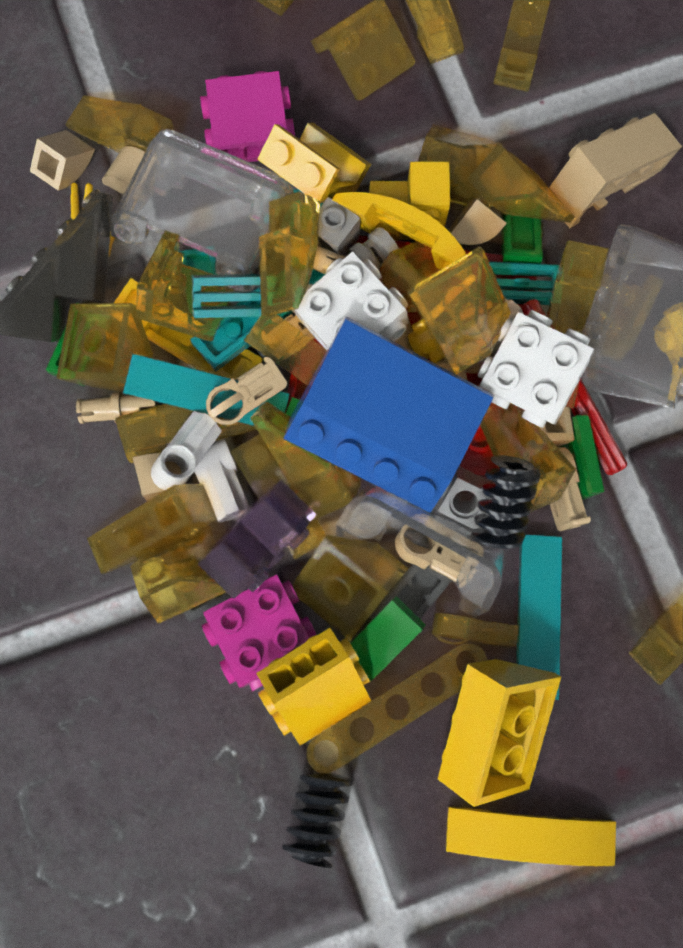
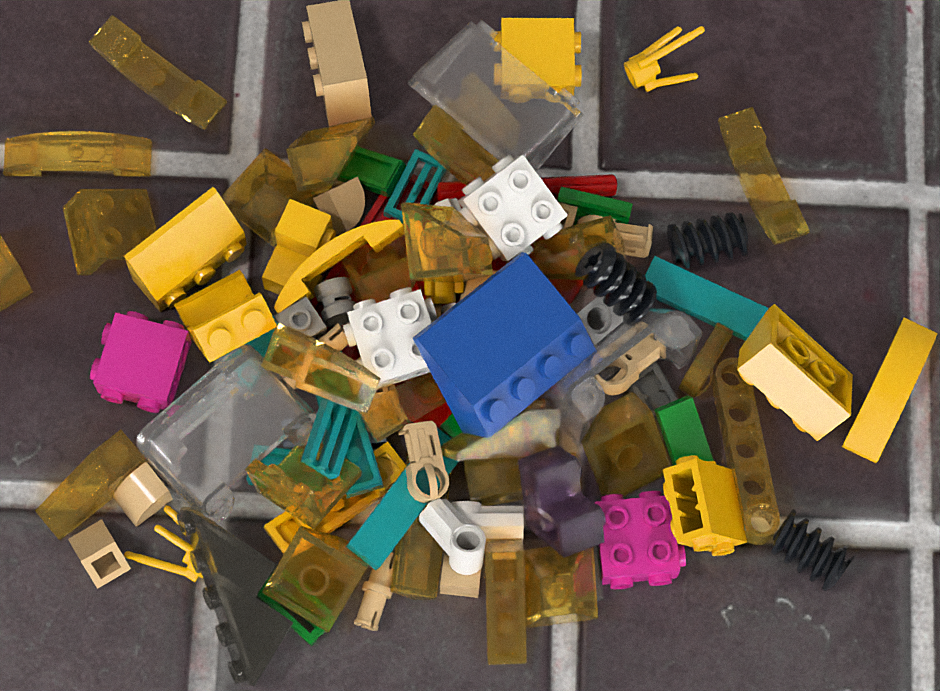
camera: 70 degrees left, 5 degrees down
(367, 106) = (186, 250): none -> yellow slope
(603, 584) = (708, 238): none -> black piece

